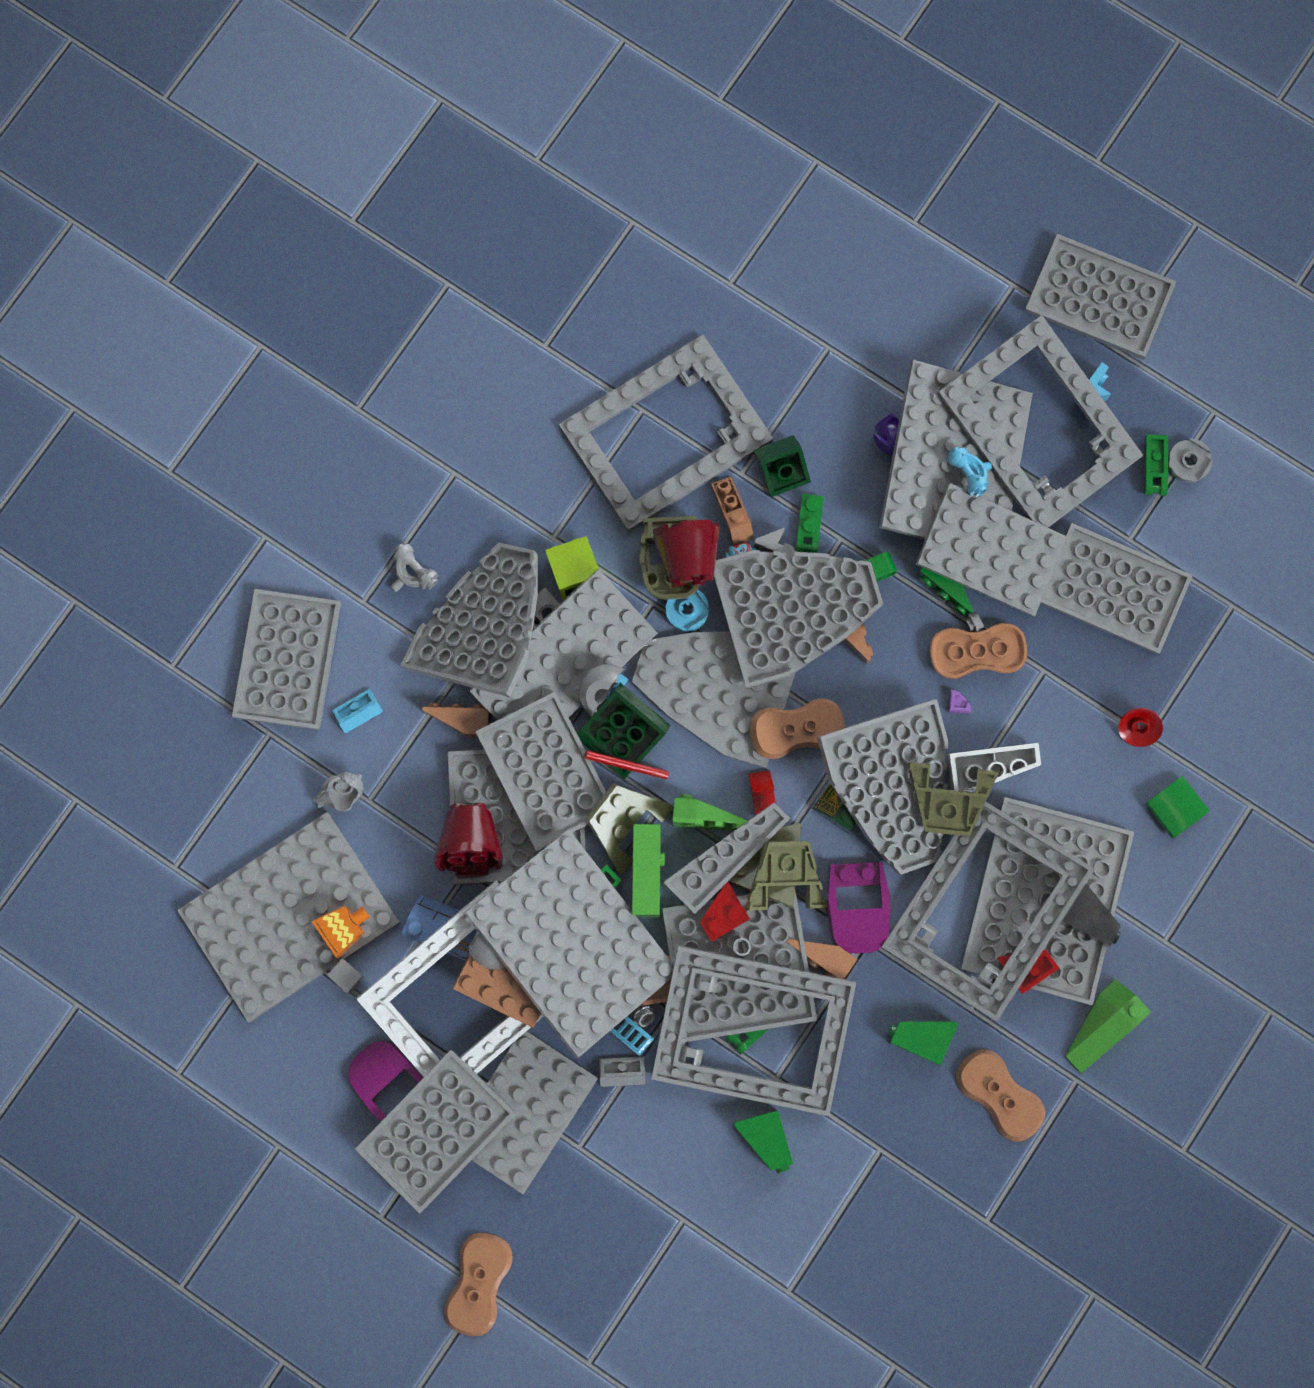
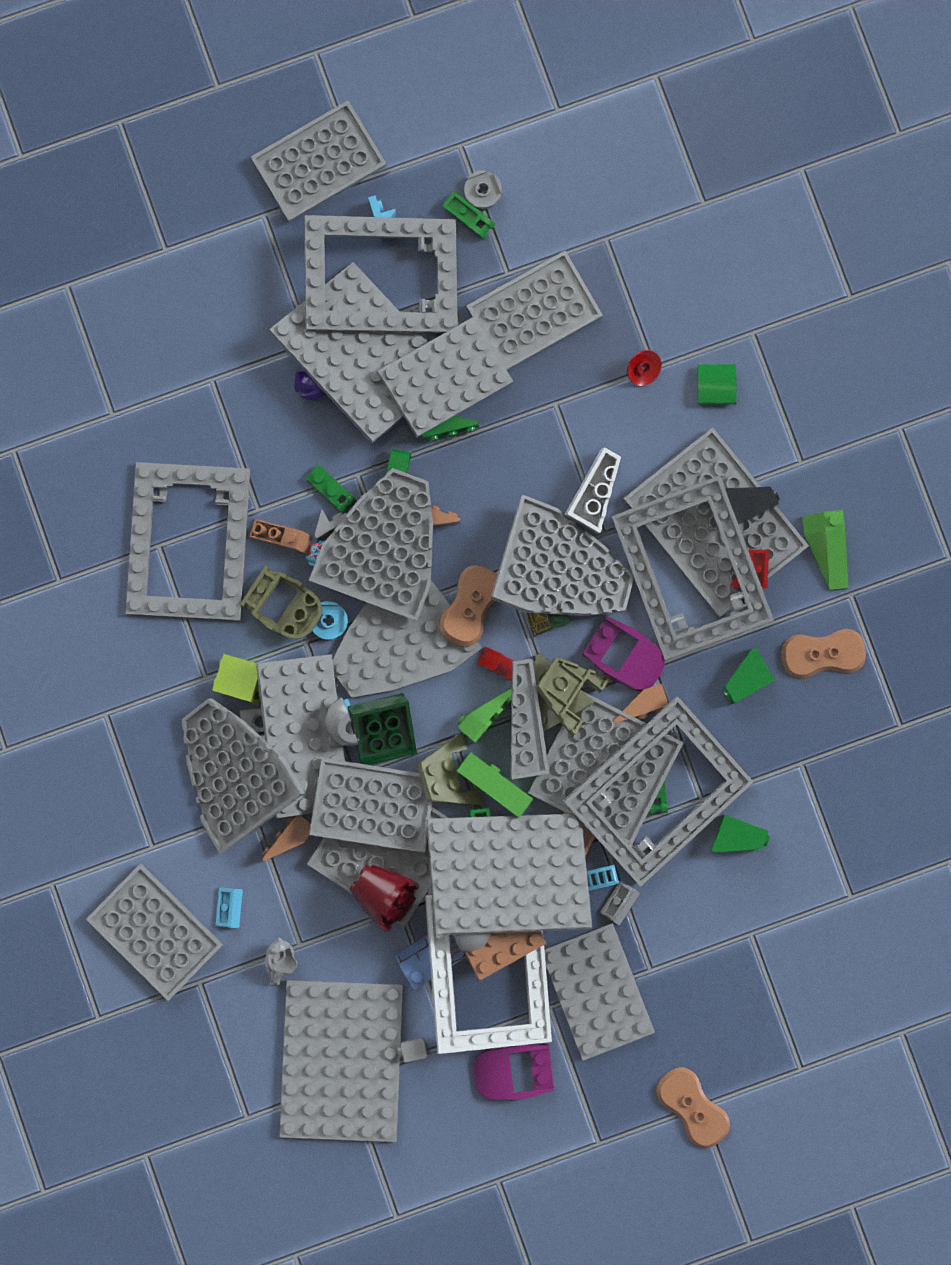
camera: 55 degrees left, 5 degrees up
(341, 928) = (379, 1029): orange torso -> none
(425, 577) = (142, 793): light grey piece -> none
(435, 1131) = (568, 1062): light grey plate -> none
(624, 764) = (409, 744): red bar -> none
(644, 1016) = (593, 860): light grey plate -> none
(688, 551) = (291, 591): dark red cone -> none
(724, 914) = (564, 753): red wing -> none
(745, 946) = (596, 754): light grey hinge -> none
(782, 465) = (274, 477): dark green slope -> none
(950, 810) = (607, 541): olive wing -> none
(958, 703) = (534, 480): medium lavender tile -> none
(968, 463) = (372, 348): medium azure piece -> none
(974, 622) = (486, 426): light grey plate -> none
(996, 649) = (501, 451): nougat plate -> none

